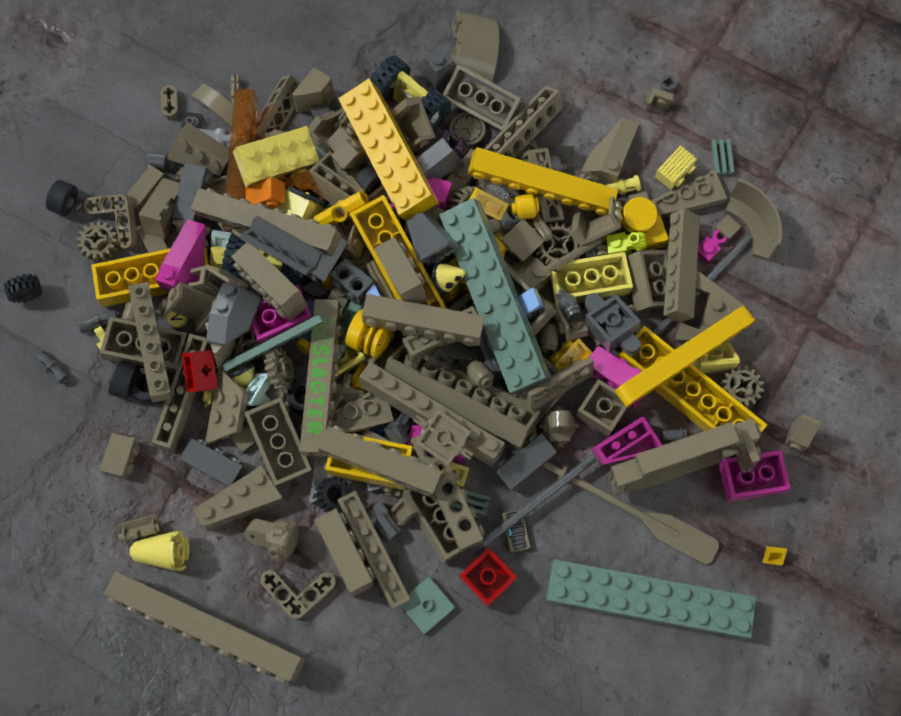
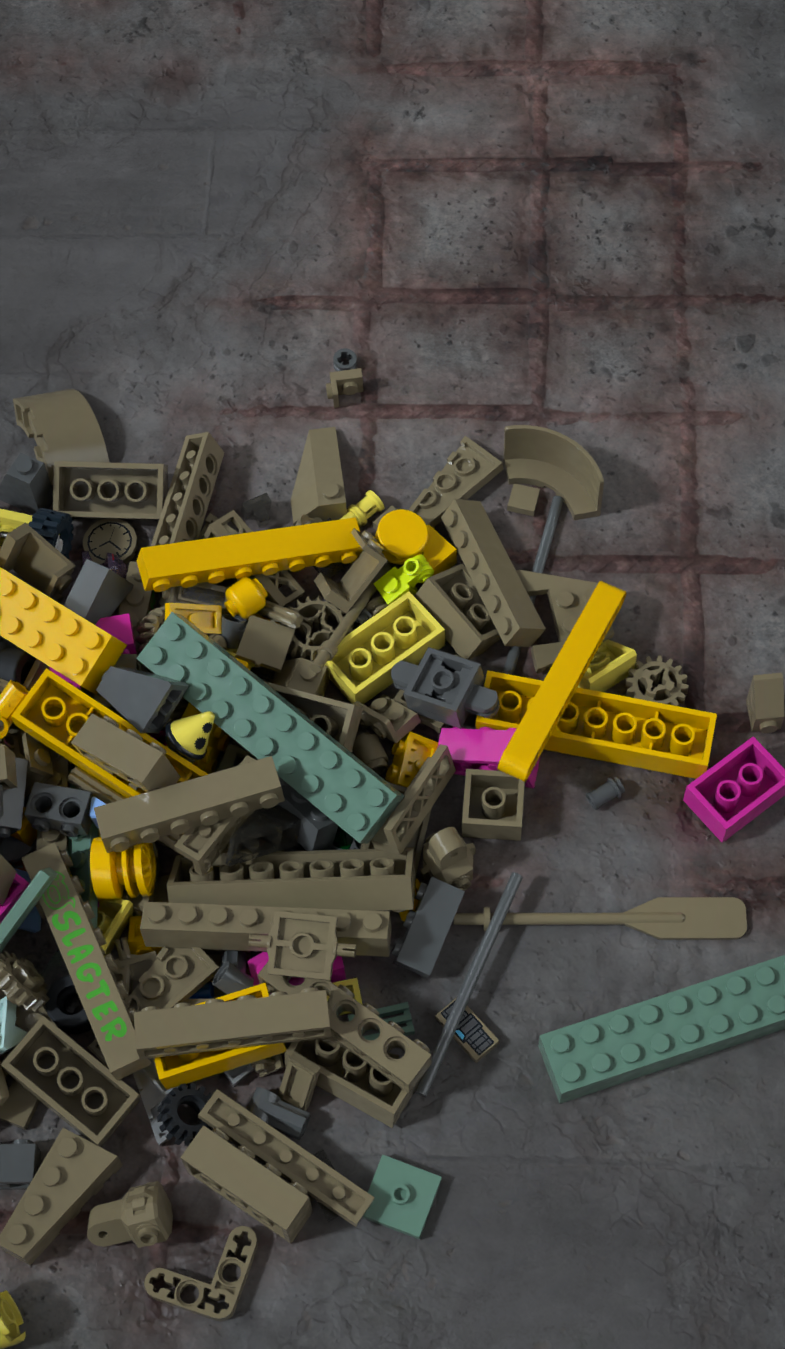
camera: 25 degrees left, 10 degrees down
(304, 346) = (39, 936): yellow tile -> none
(480, 374) = (305, 842): dark tan brick -> none
(487, 577) = (464, 1110): red brick -> none
(530, 301) = (321, 709): light blue slope -> none
(568, 304) = (372, 693): dark grey animal -> none
(626, 443) = (552, 833): dark pink wedge -> none
(676, 168) = (415, 458): light yellow brick -> none
(689, 456) = (640, 802): dark tan panel -> none
(710, 247) = (515, 535): dark pink plate -> none
(721, 144) = (456, 401): sand green tile -> none

